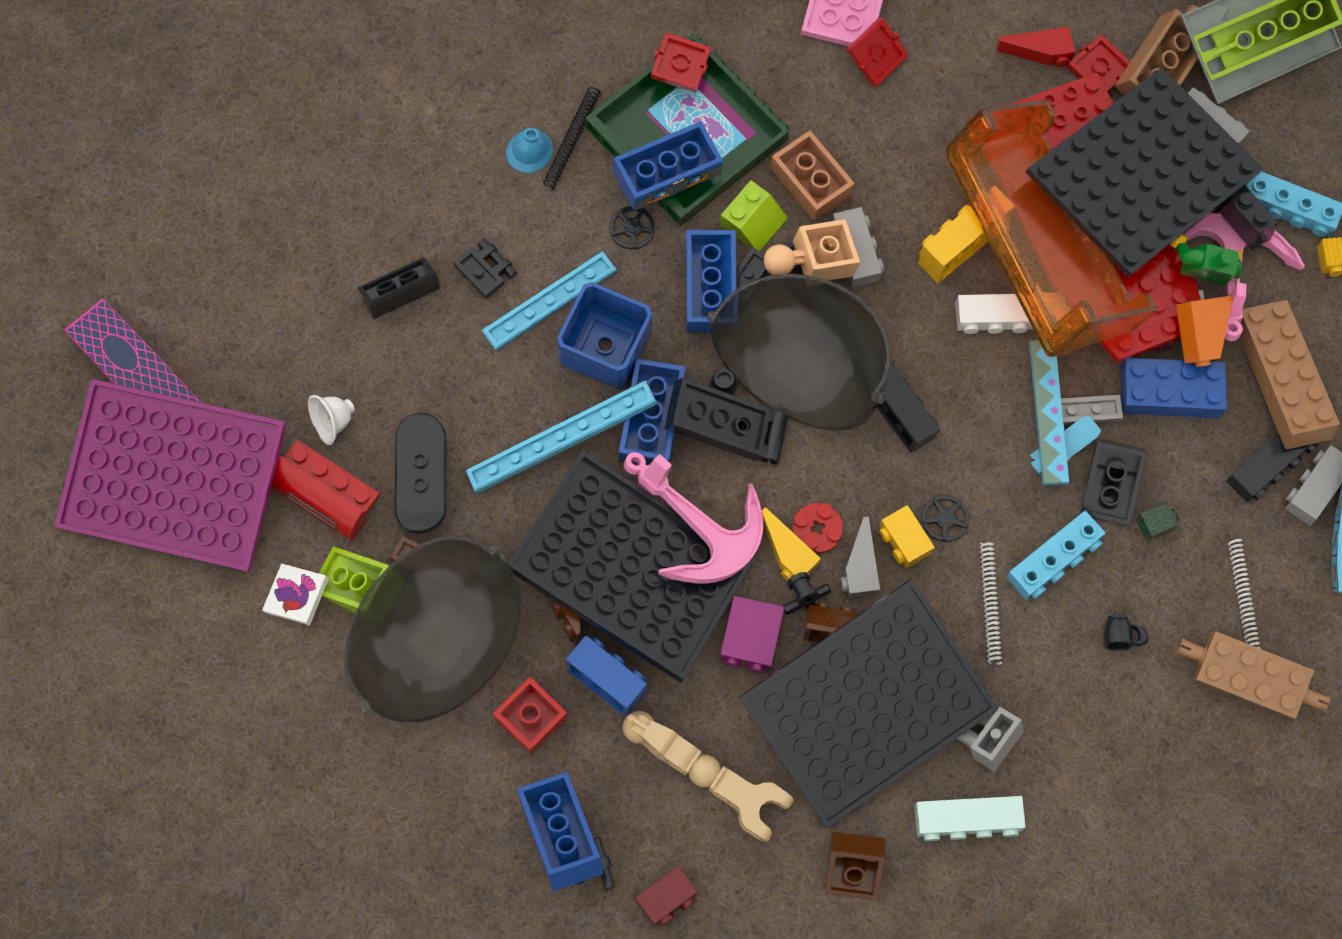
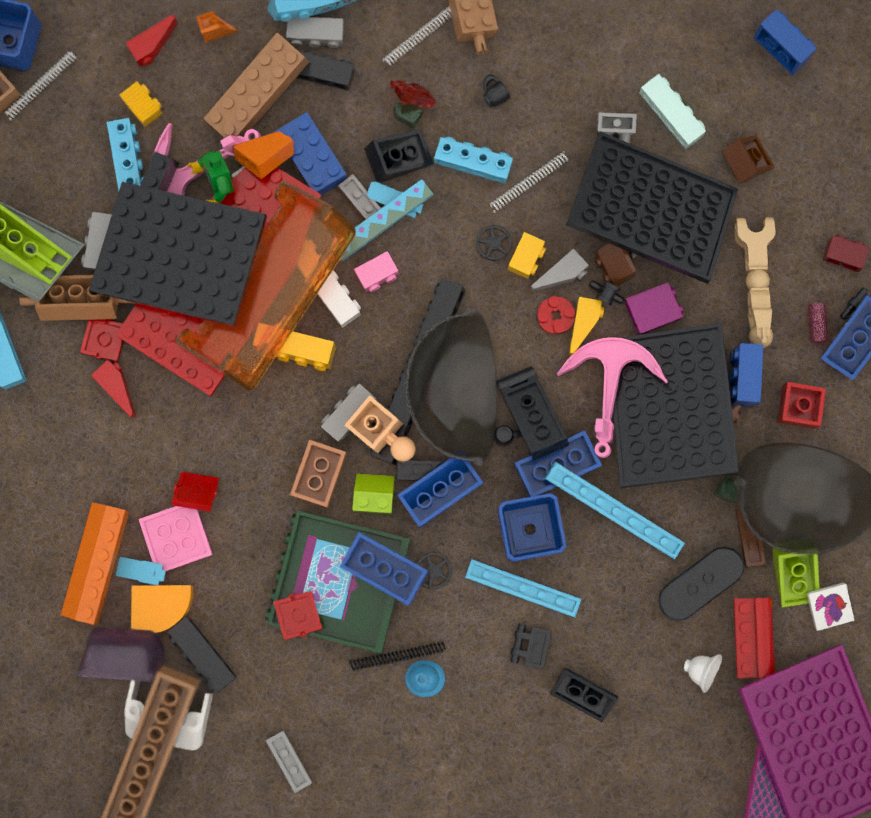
camera: 120 degrees left, 10 degrees up
(608, 806) = (818, 323): none -> clear pink axle
(993, 372) = (377, 272): none -> bright pink brick
(1177, 535) = (412, 93): none -> clear red plate

